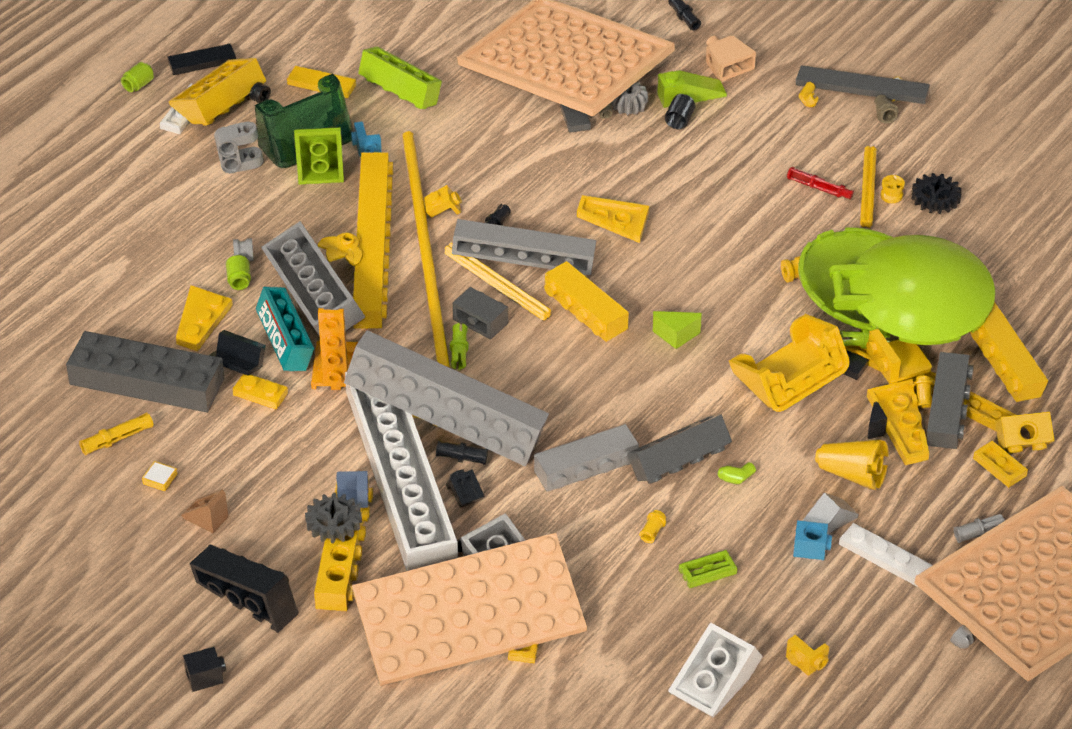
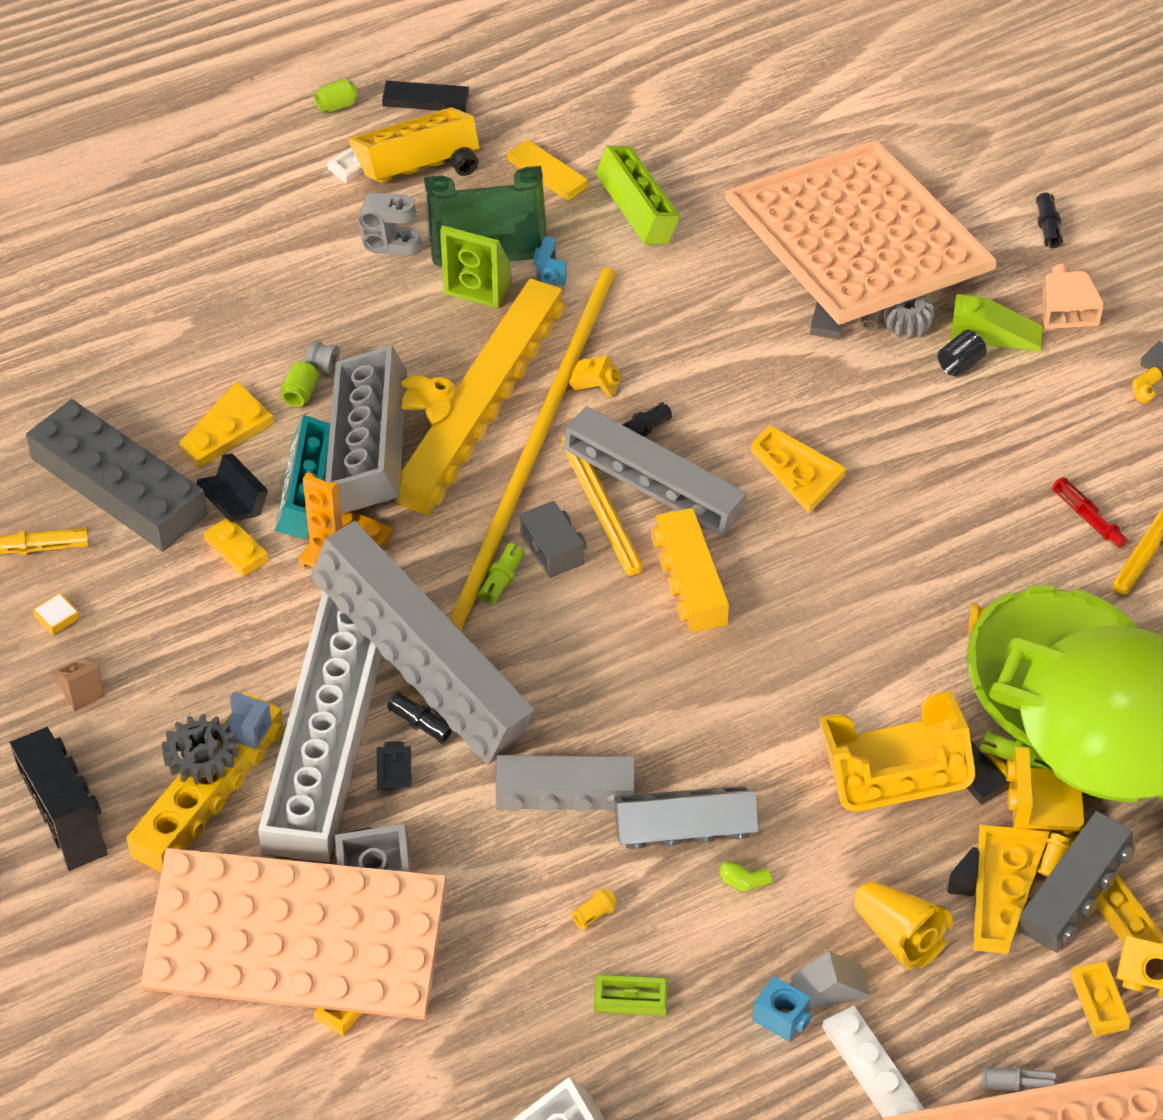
camera: 25 degrees right, 5 degrees up
(676, 327) = (786, 646): lime slope -> none

